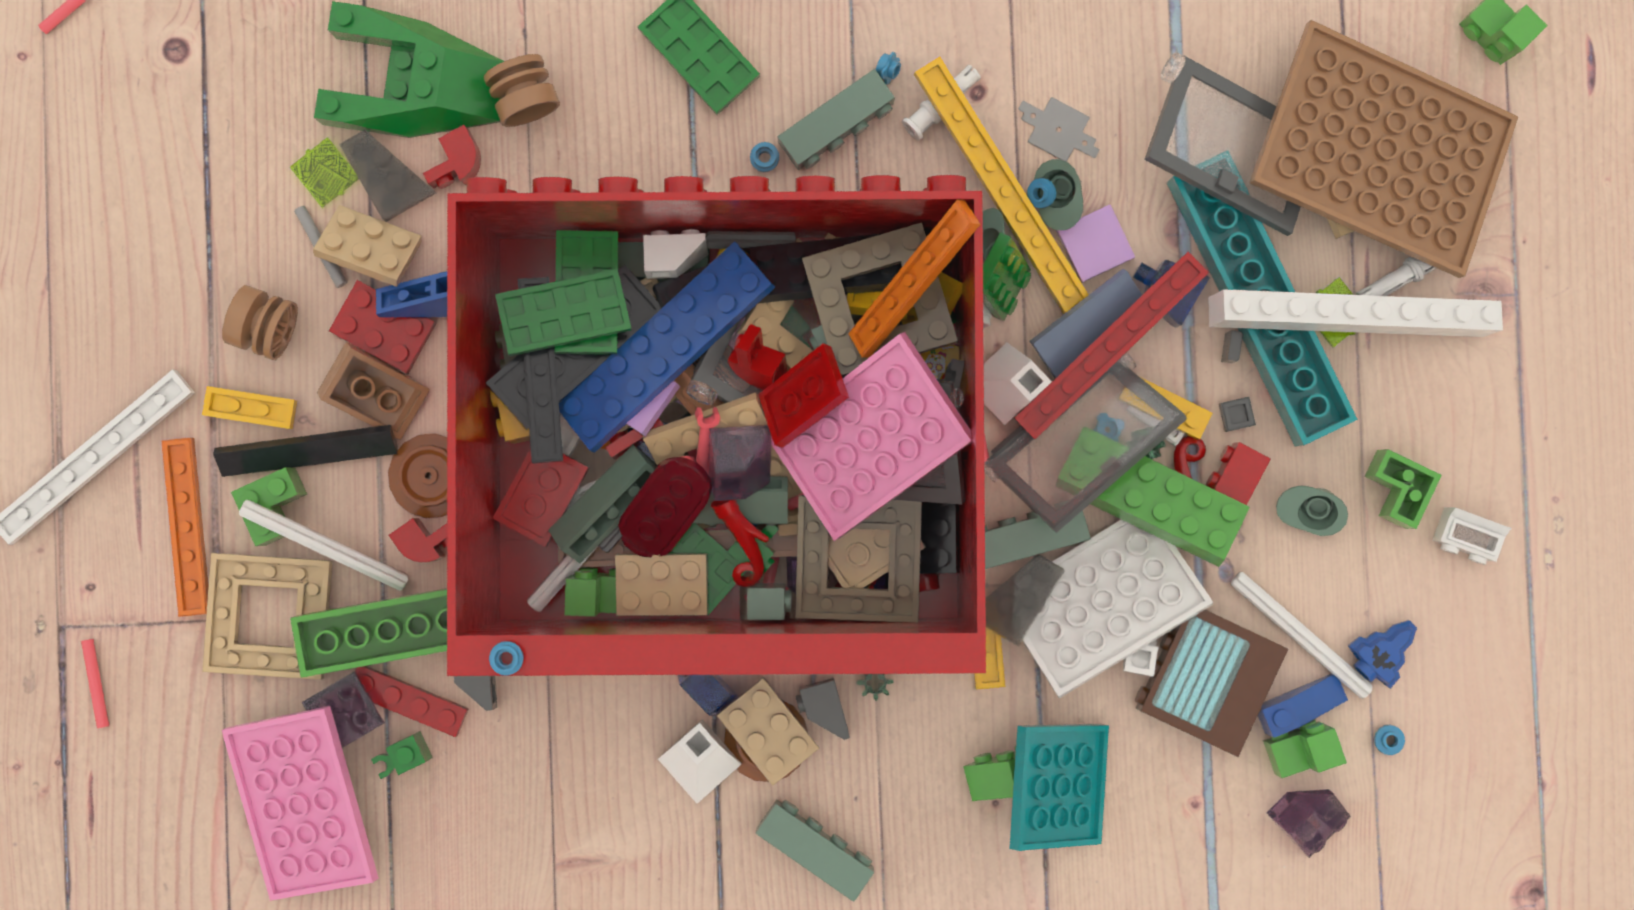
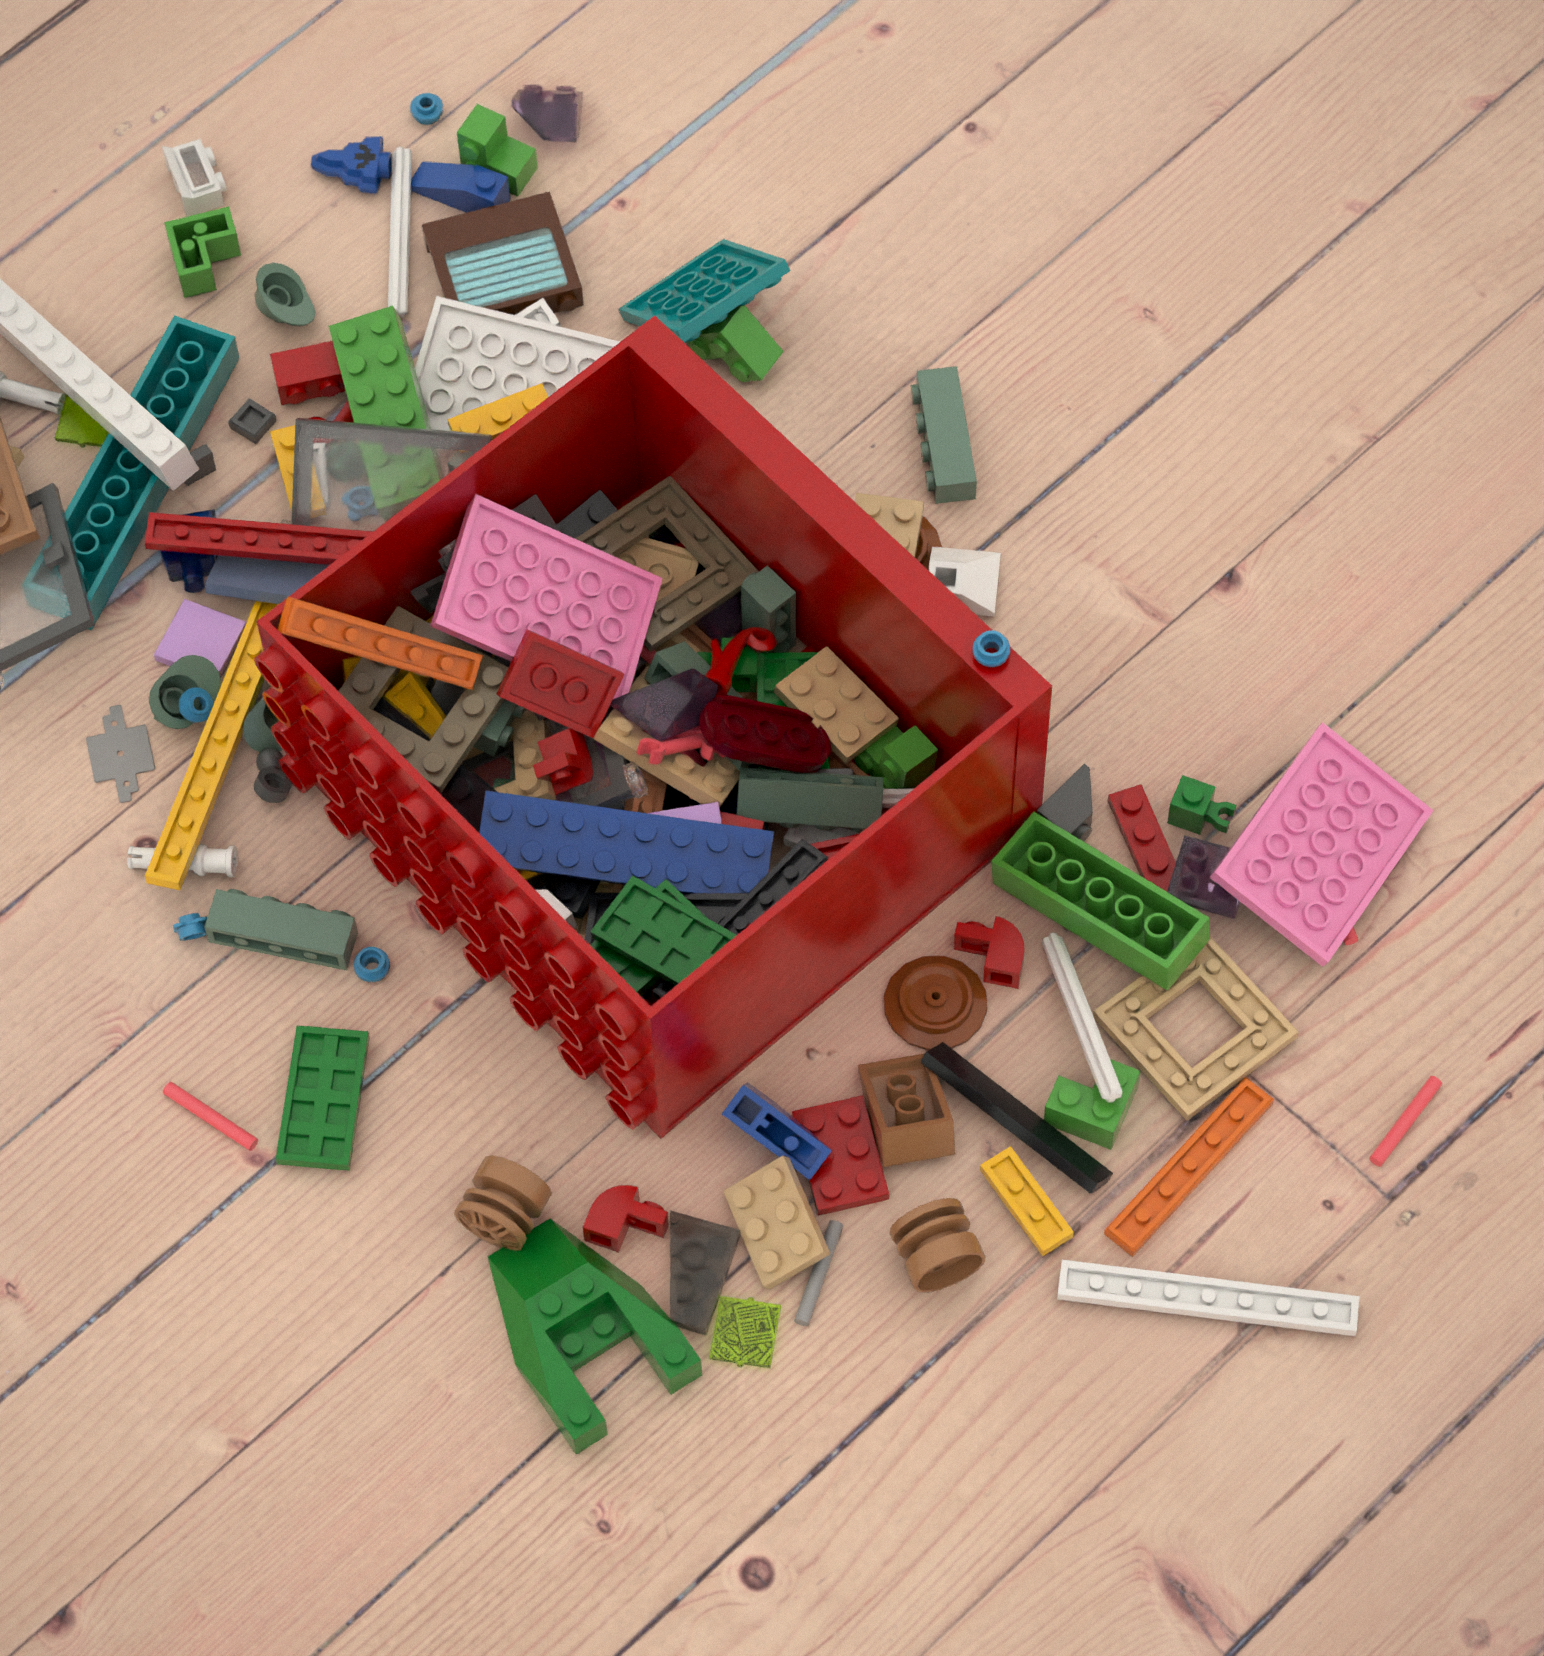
camera: 130 degrees left, 25 degrees down
(1081, 566) = (500, 414): none -> yellow plate

